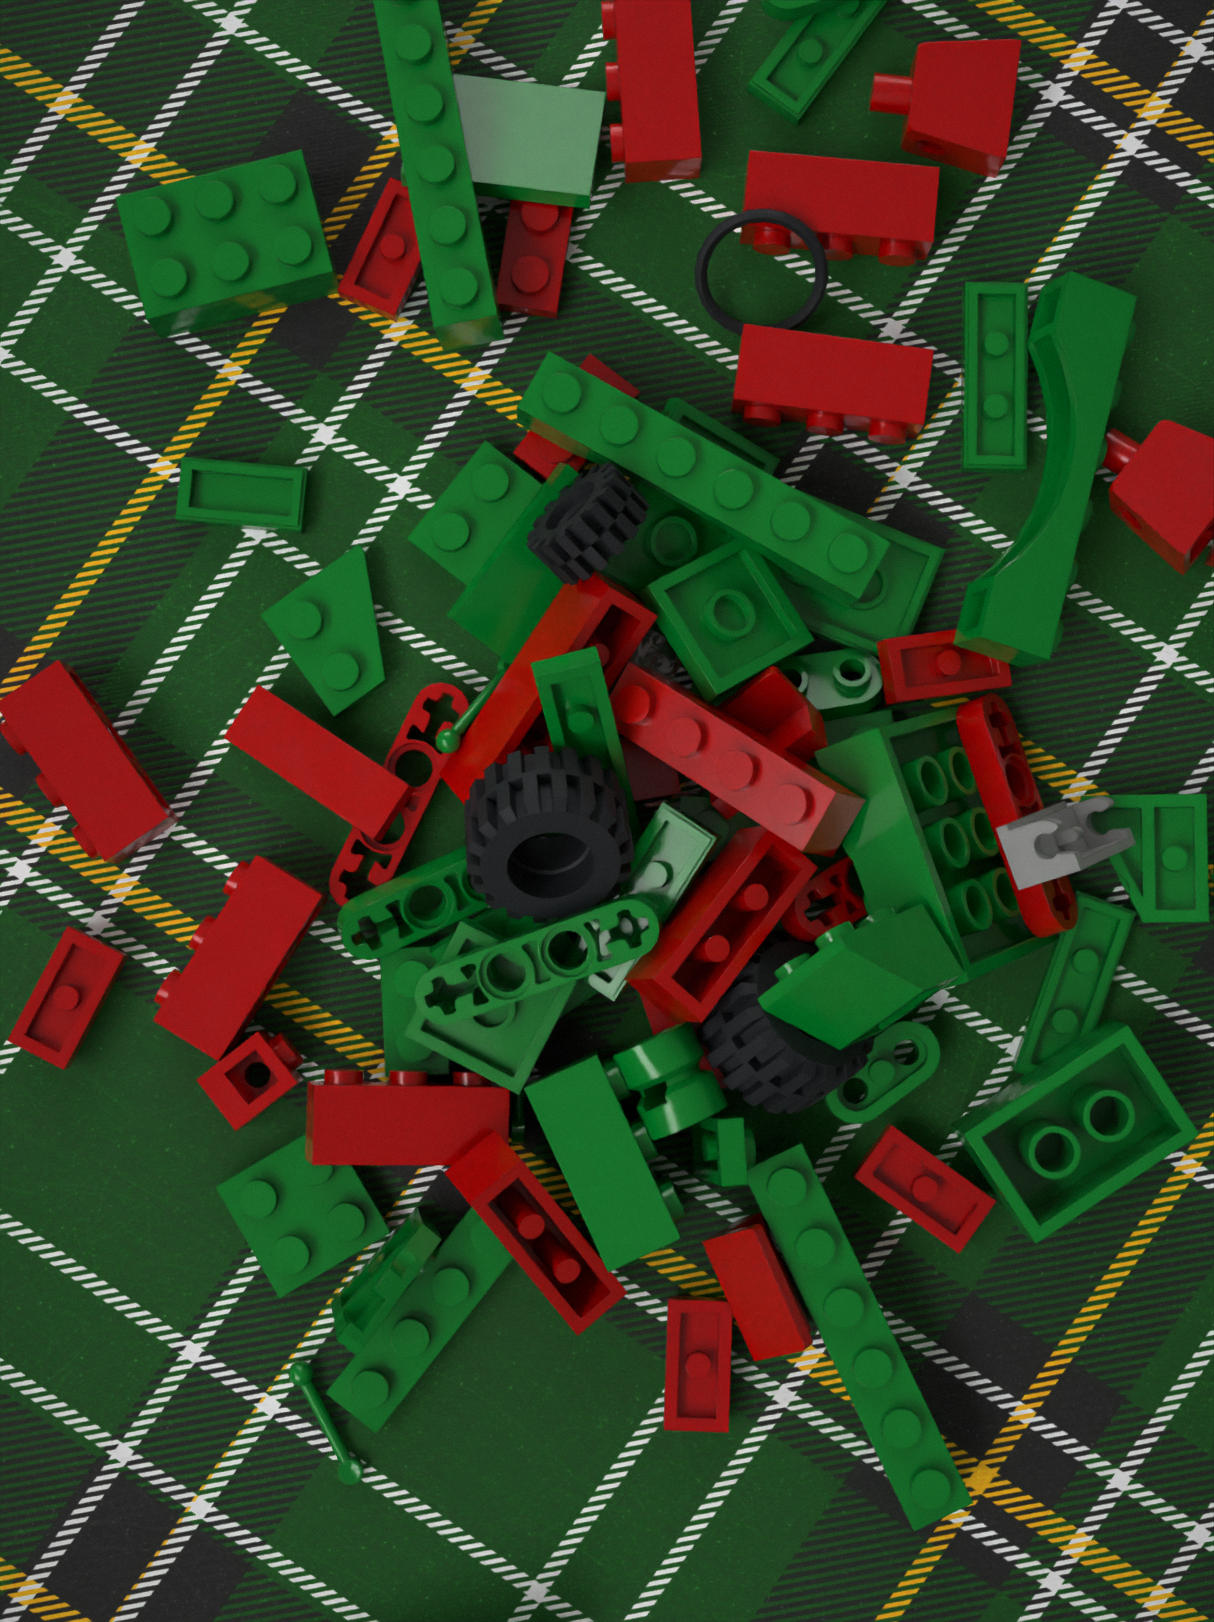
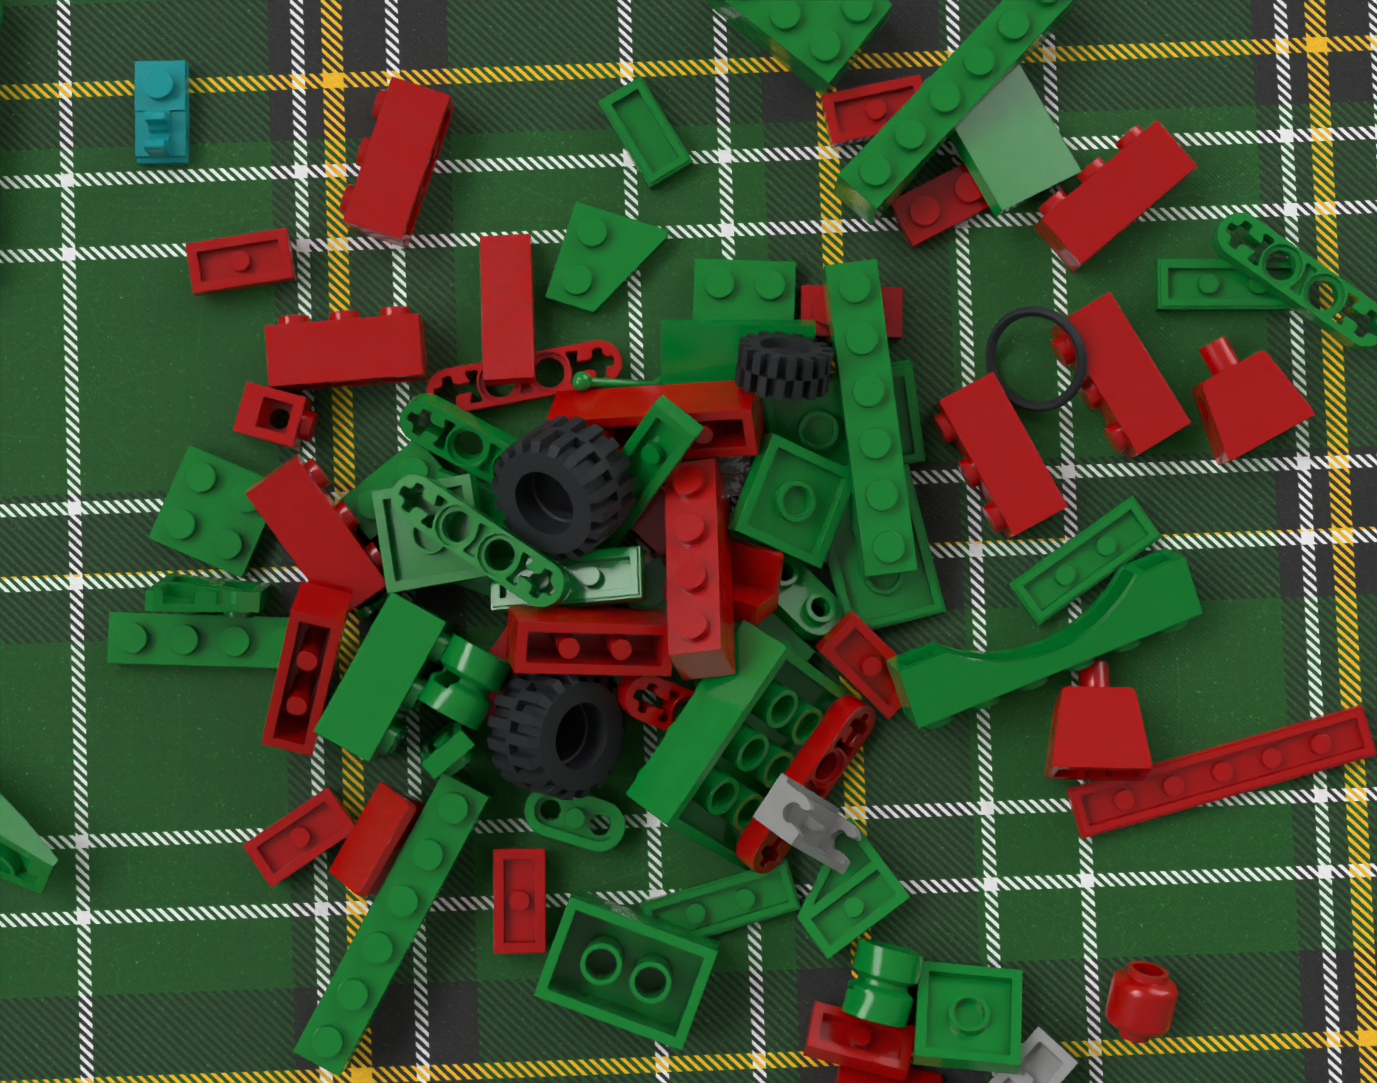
camera: 55 degrees right, 0 degrees up
(350, 1467) = (73, 663): green hinge -> none
(863, 977) = (618, 755): green slope -> none

